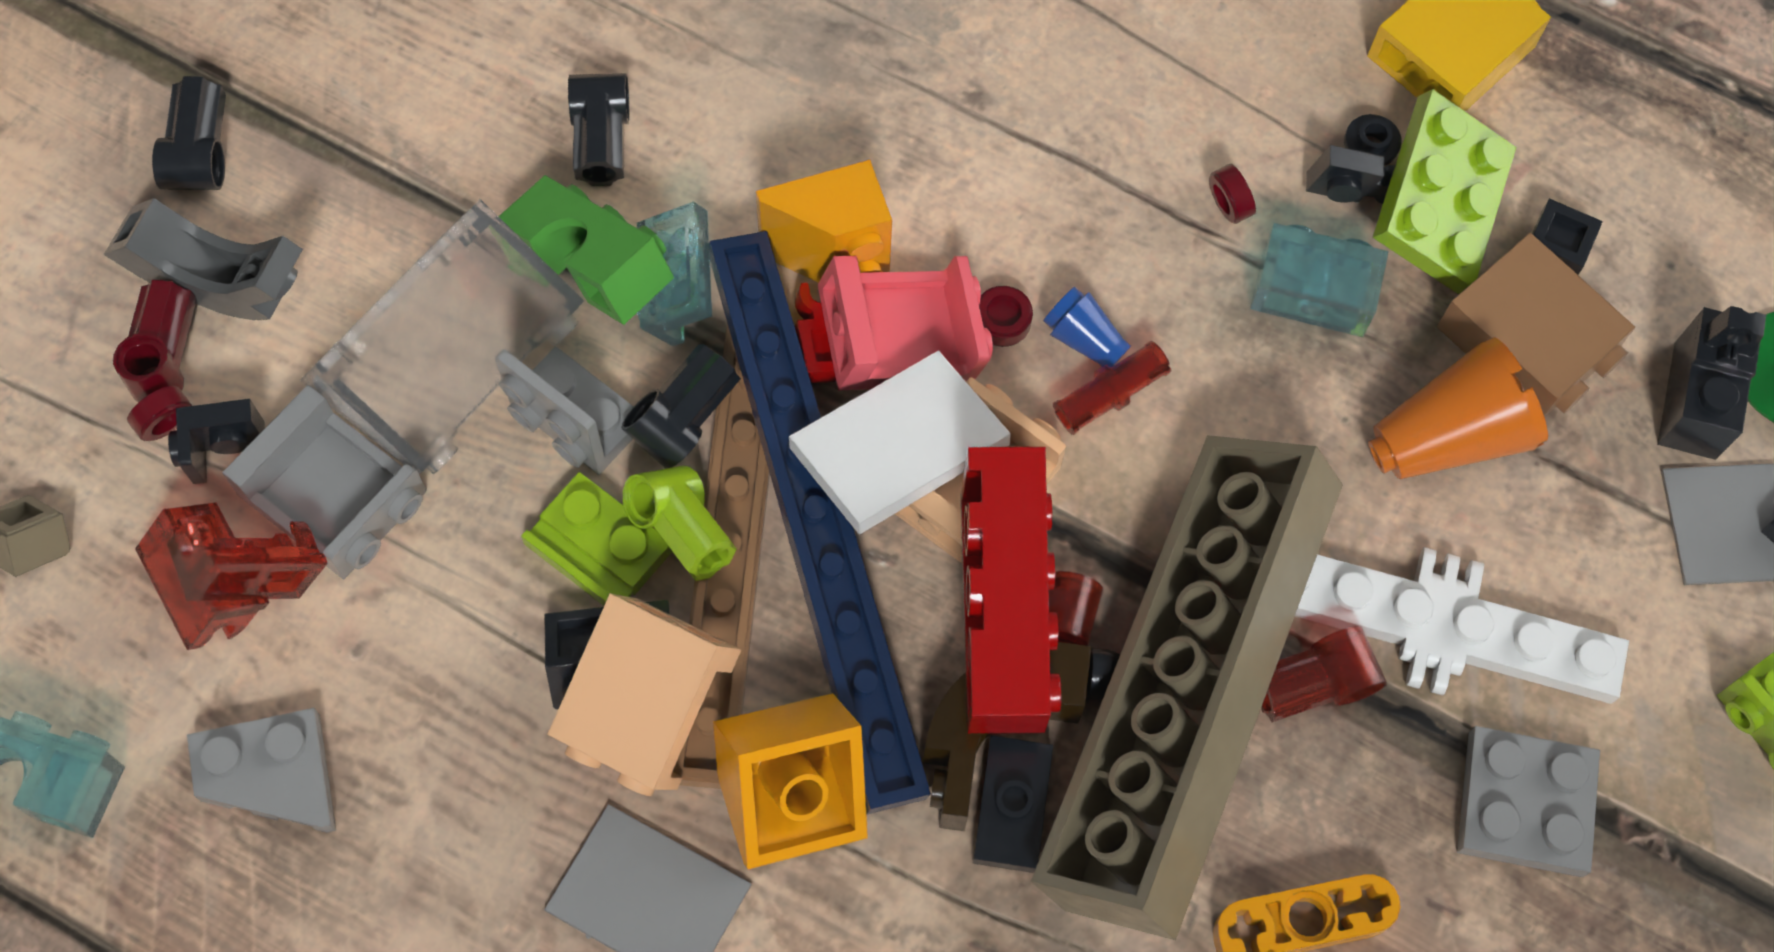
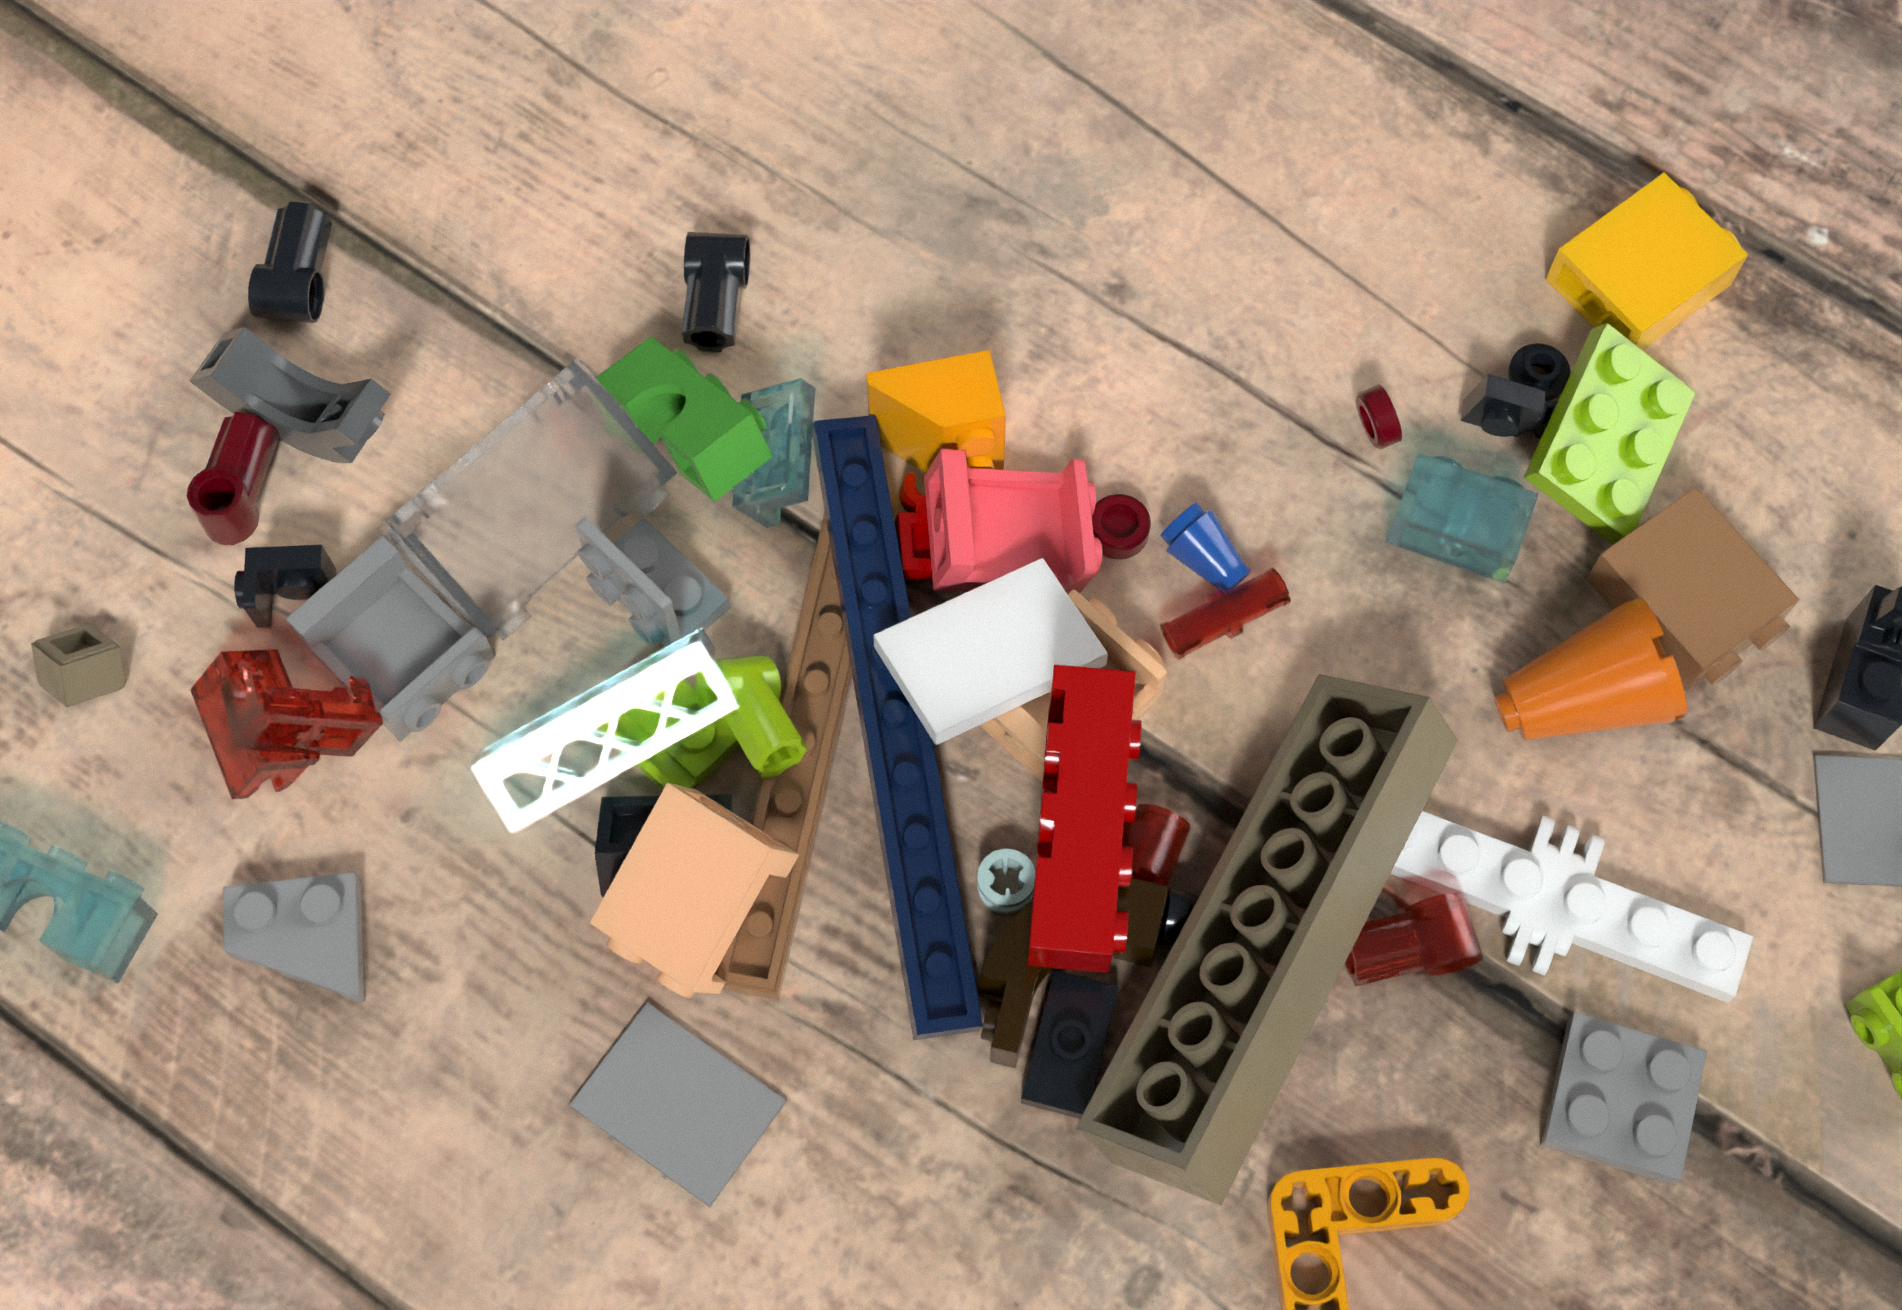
camera: 10 degrees right, 0 degrees up
(156, 413) = (225, 551): dark red tile -> none
(529, 530) = (592, 708): none -> clear light blue fence
(670, 418) = (753, 603): black piece -> none
(792, 779) = (839, 995): light orange slope -> none
(955, 656) = (1005, 859): none -> light aqua bush
(1567, 233) = (1738, 492): black plate -> none

